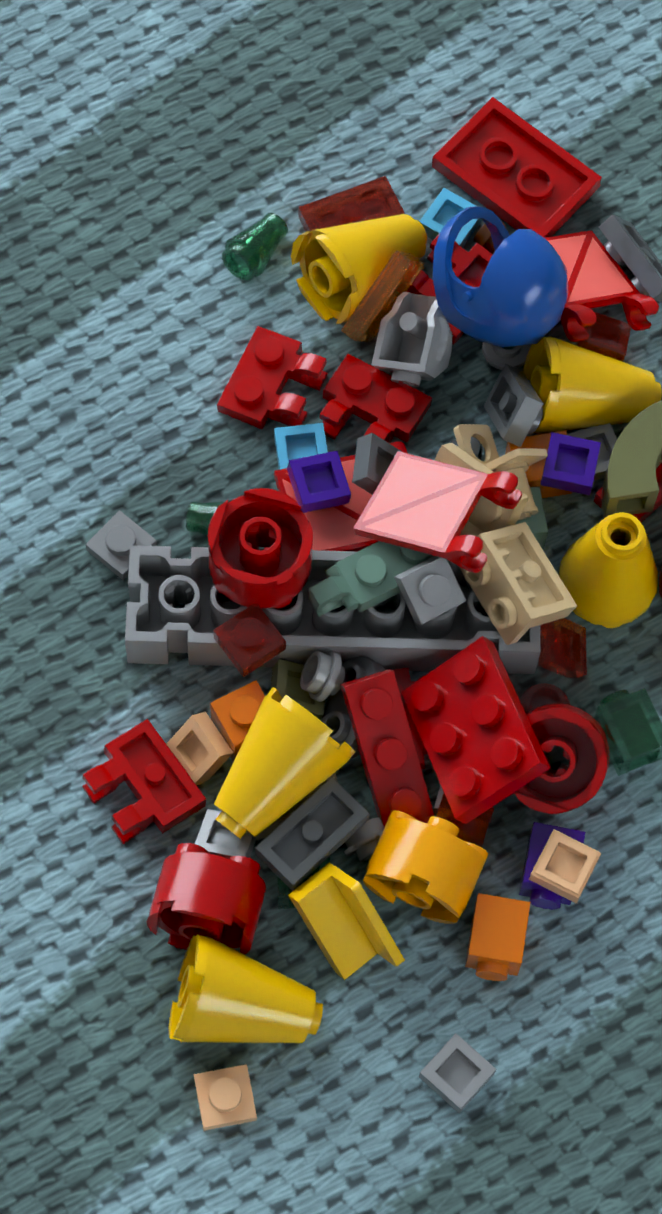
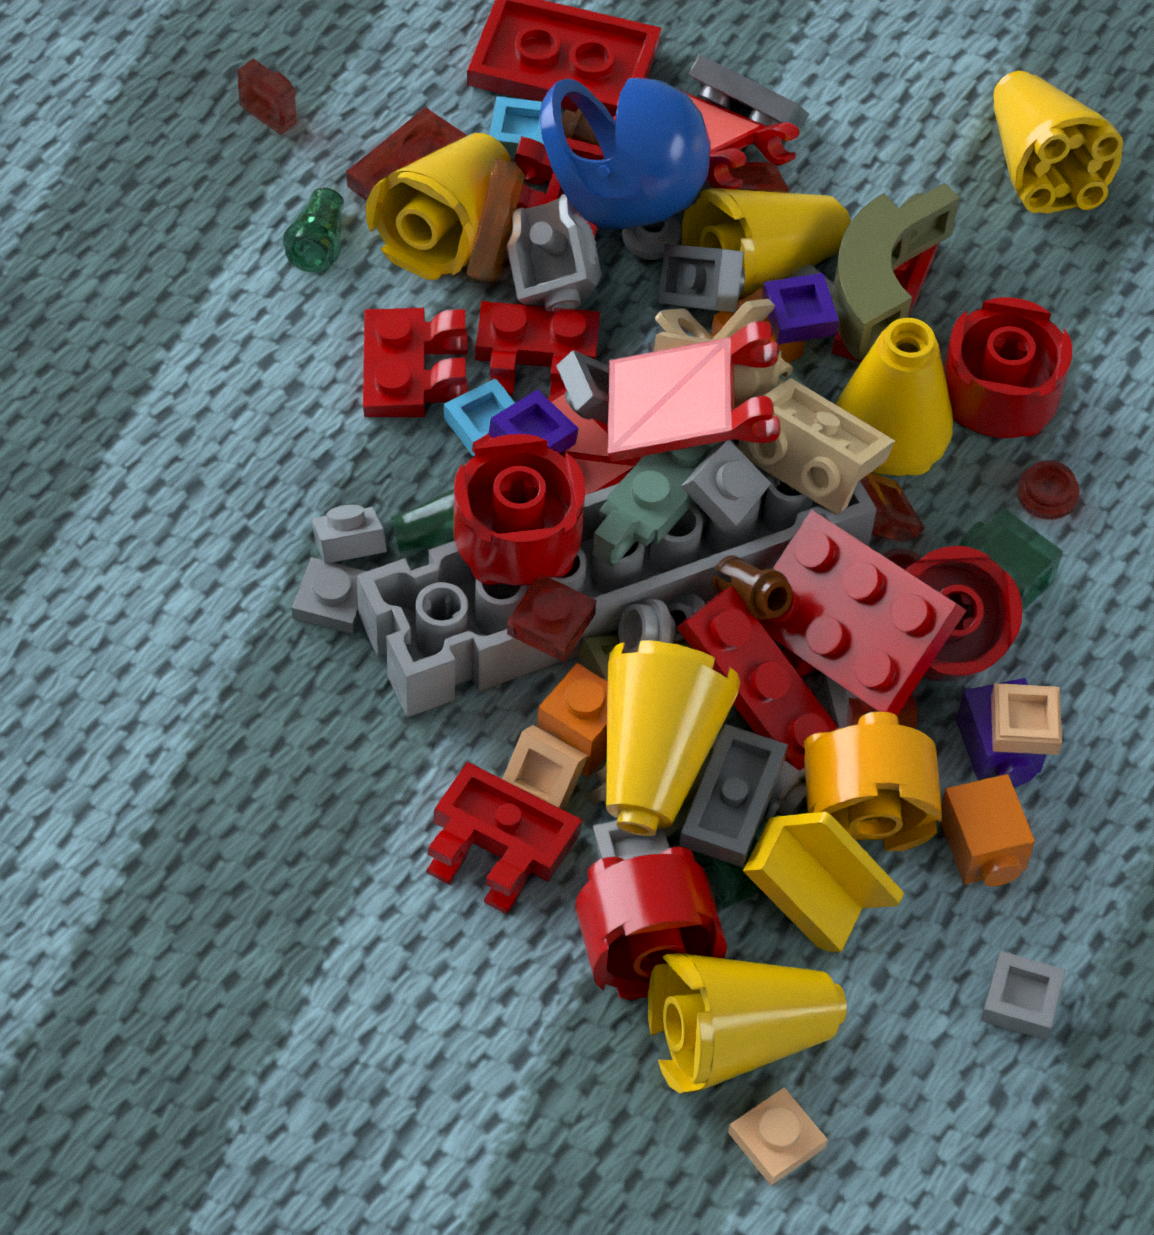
camera: 25 degrees left, 10 degrees down
(154, 503) = (348, 533): none -> light grey plate
(273, 120) = (267, 96): none -> clear red plate
(414, 685) = (764, 592): none -> reddish brown pin

